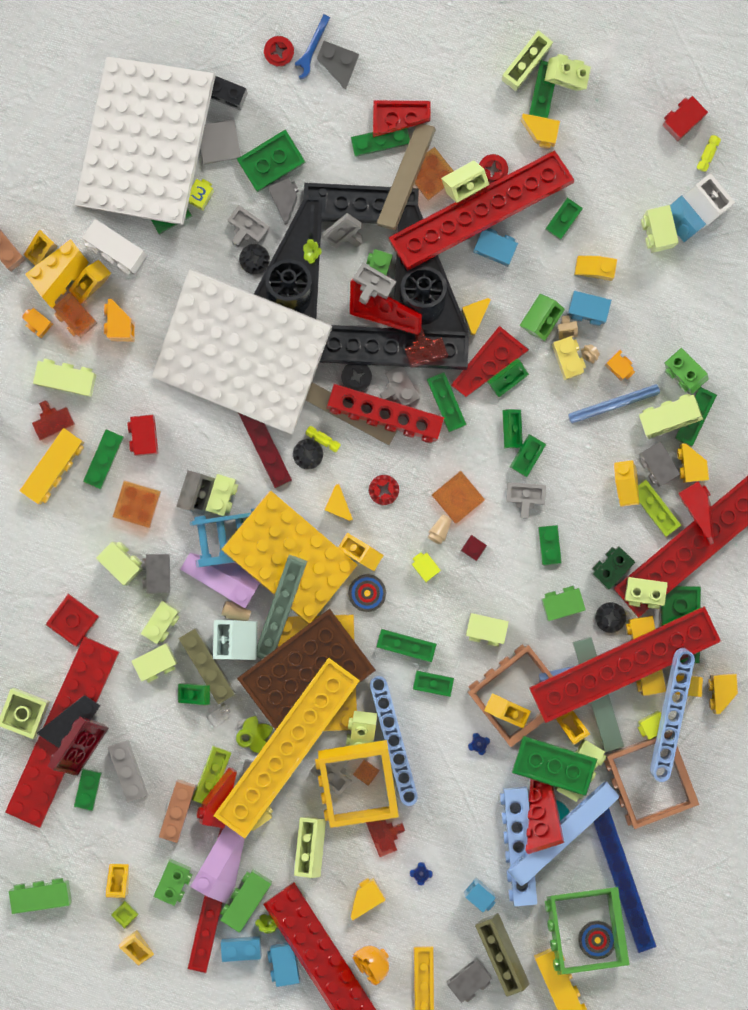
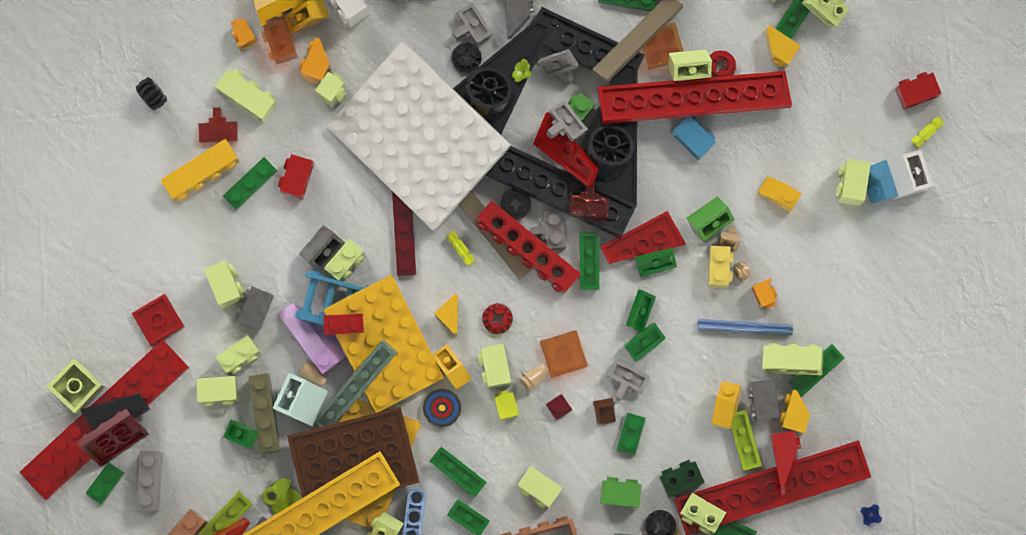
camera: 25 degrees right, 5 degrees down
(136, 504) = (263, 237): clear orange plate -> none
(142, 341) = (331, 89): none -> yellowish green brick
(246, 555) = (343, 324): none -> red plate
(317, 454) = (449, 260): black gear -> none
(401, 535) = (495, 365): none -> yellowish green brick
(474, 313) = (649, 191): yellow slope -> none
(517, 534) = (604, 411): none -> reddish brown panel
(563, 218) = (768, 137): green plate -> none
(589, 308) = (757, 228): dark azure brick -> none
(686, 371) = (824, 323): bright green brick -> none

